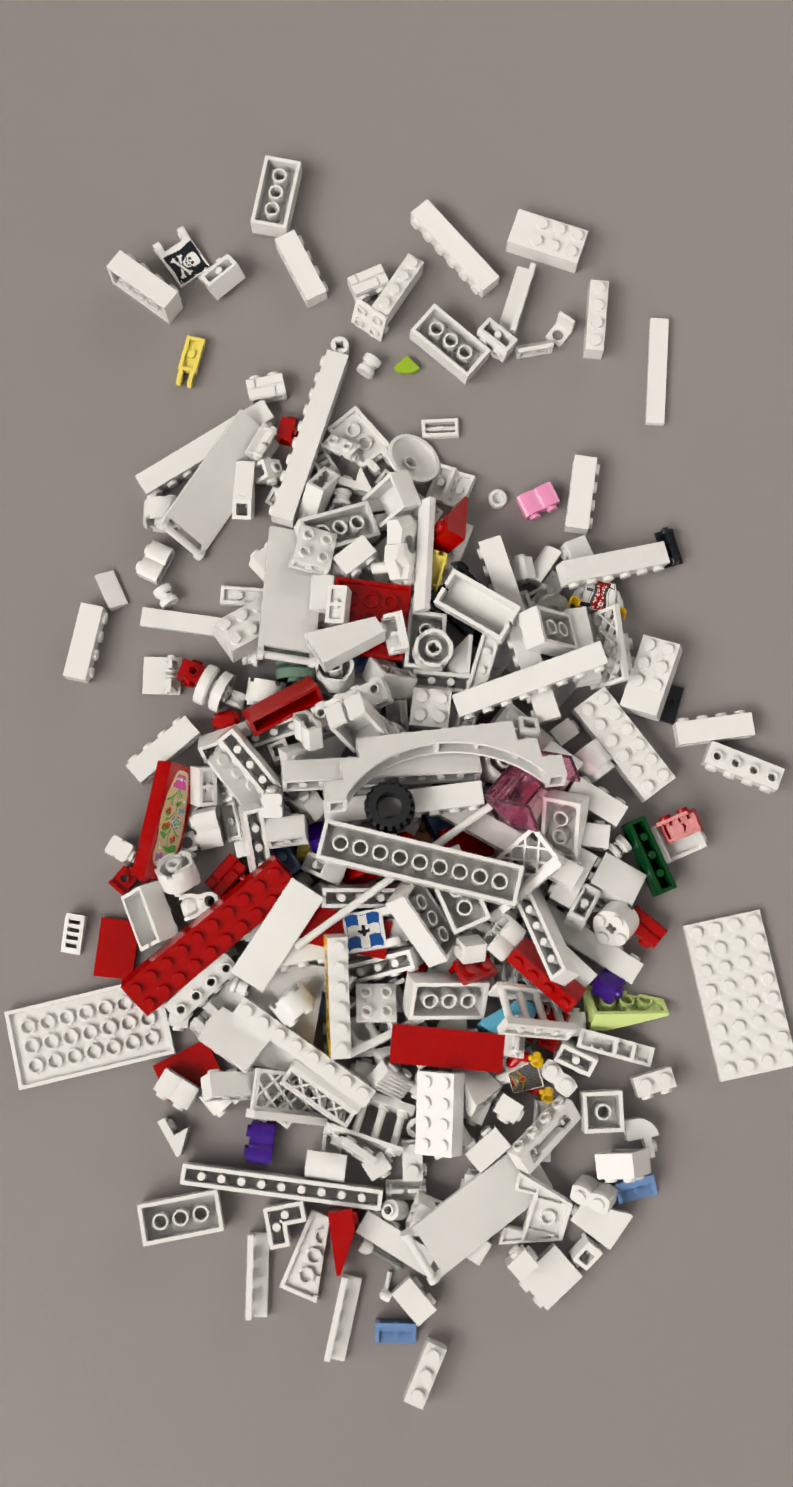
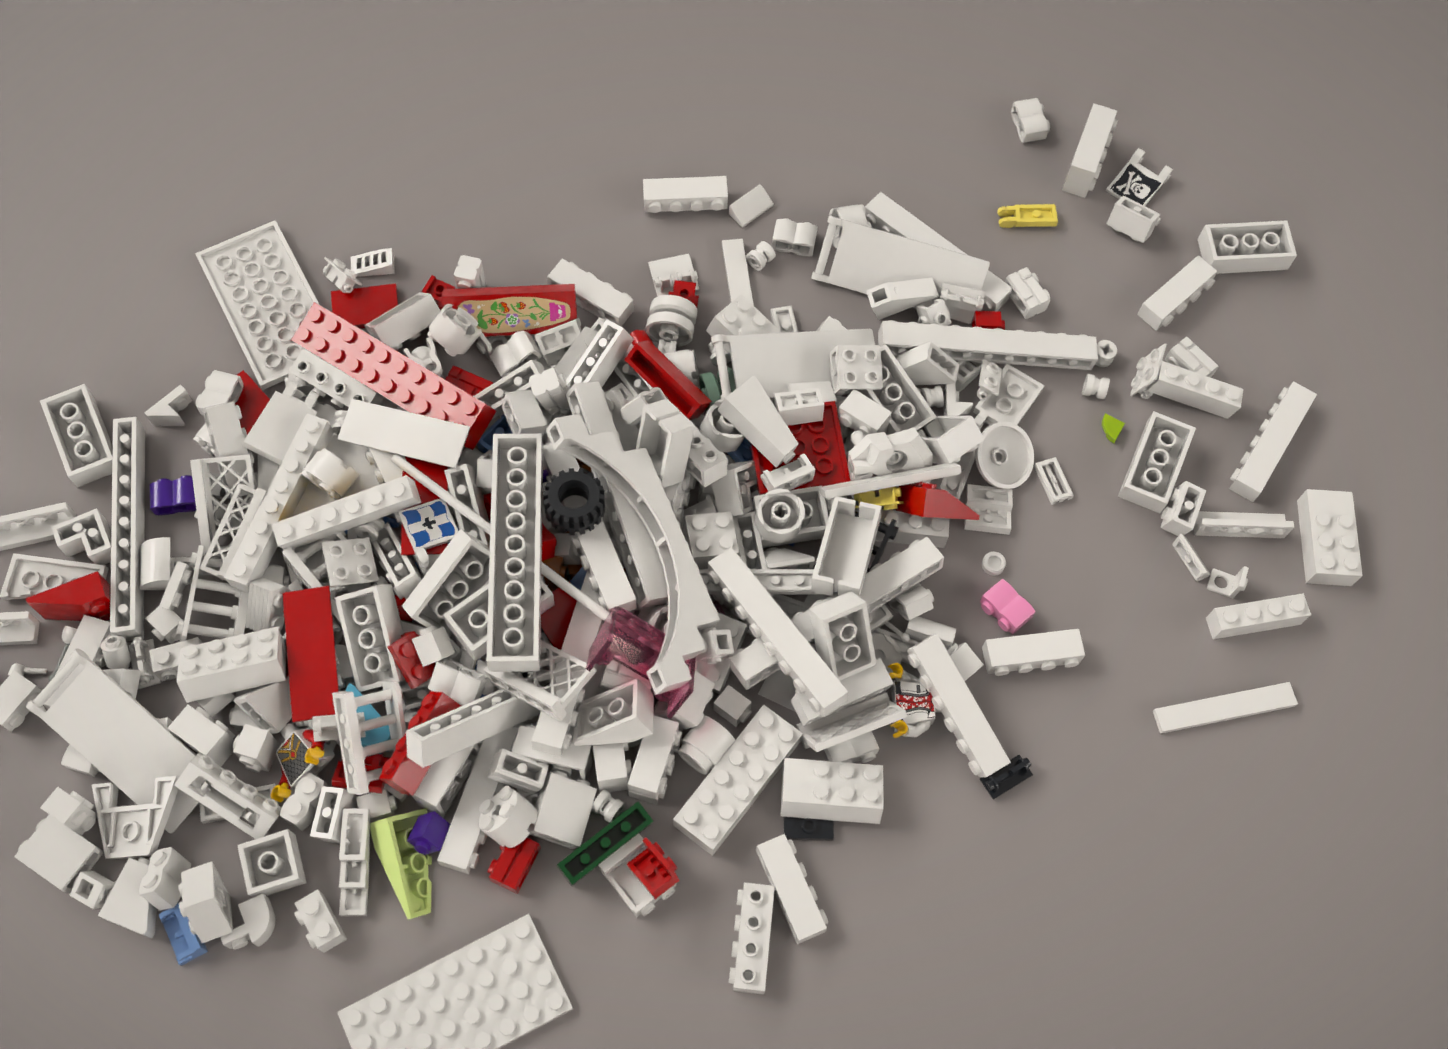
camera: 70 degrees right, 15 degrees down
(73, 966) = (341, 277): none -> white hinge
(93, 324) = (1030, 120): none -> white brick

